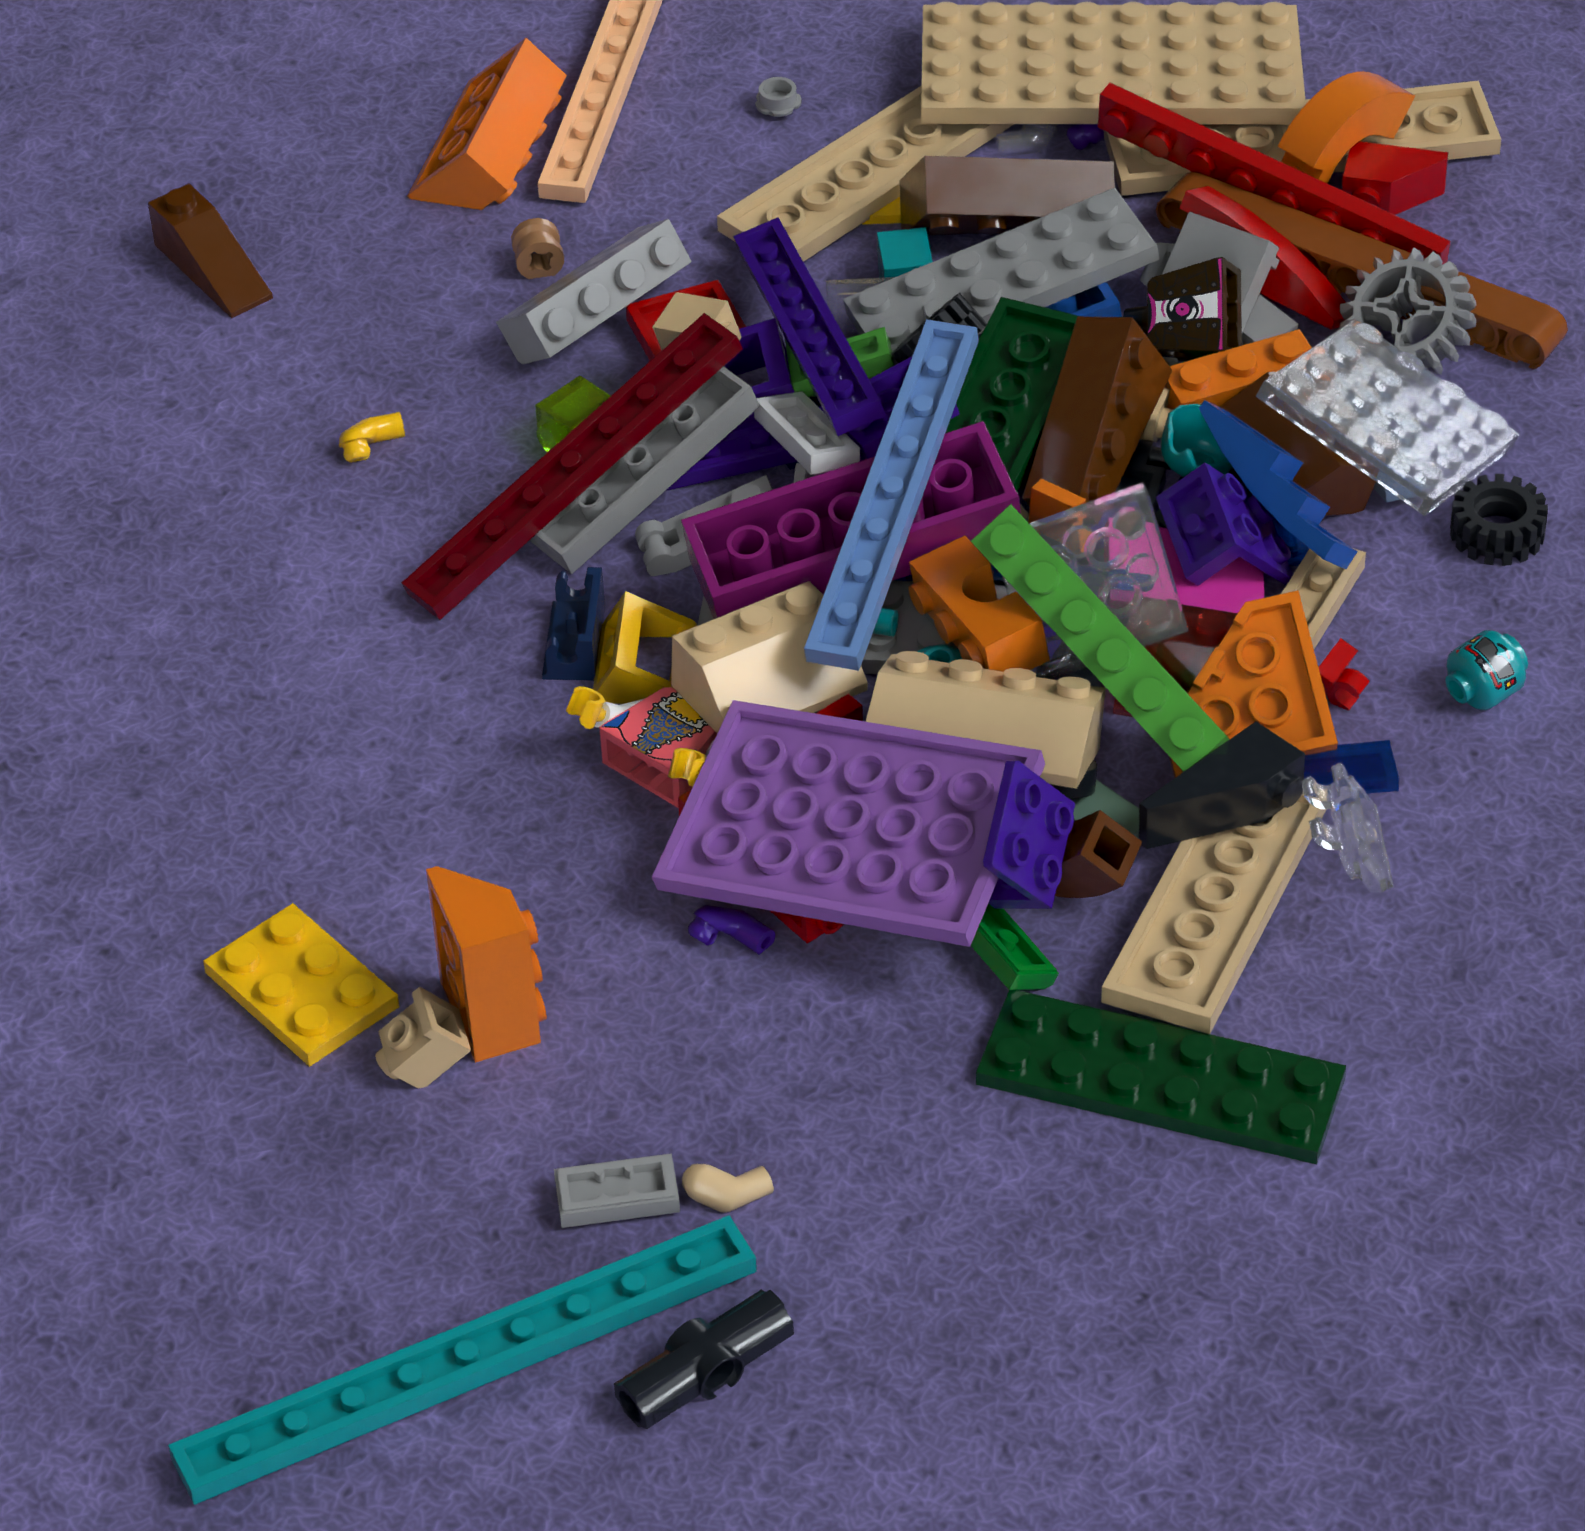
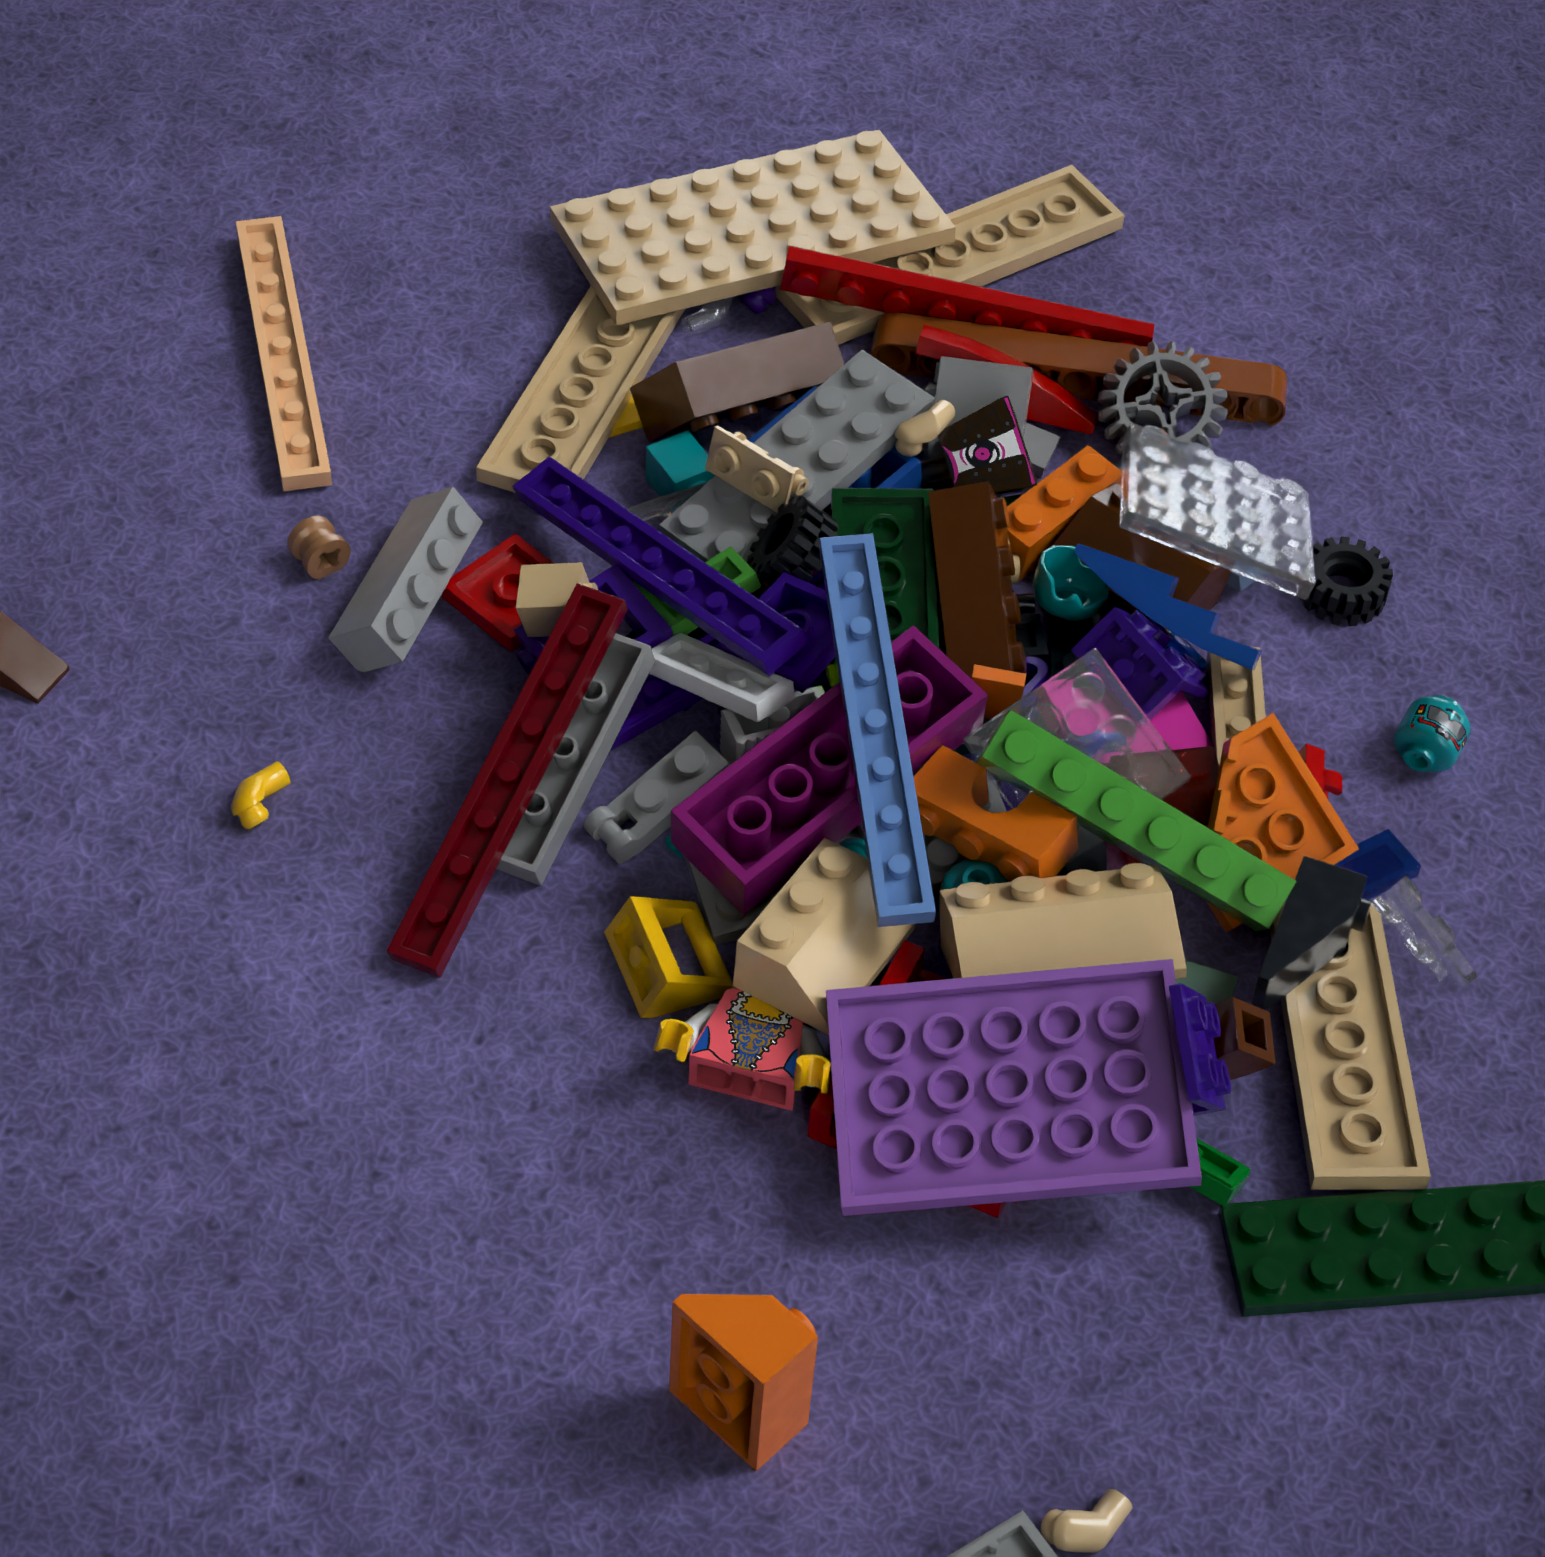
camera: 30 degrees left, 5 degrees up
(301, 984) = (532, 1447): yellow plate -> none
(422, 1040) = (725, 1475): tan brick -> none
(491, 131) = (200, 435): orange slope -> none
(566, 409) = (461, 719): clear neon green brick -> none
(575, 628) = (587, 947): dark blue hinge -> none
(733, 922) = (930, 1223): dark purple arm -> none
(777, 97) = (458, 330): light grey plate -> none
(943, 264) = (752, 470): none -> tan hinge
(1132, 268) = (923, 428): none -> tan arm
(1339, 118) = (999, 233): orange arch -> none
(1394, 175) = (1054, 270): red slope -> none

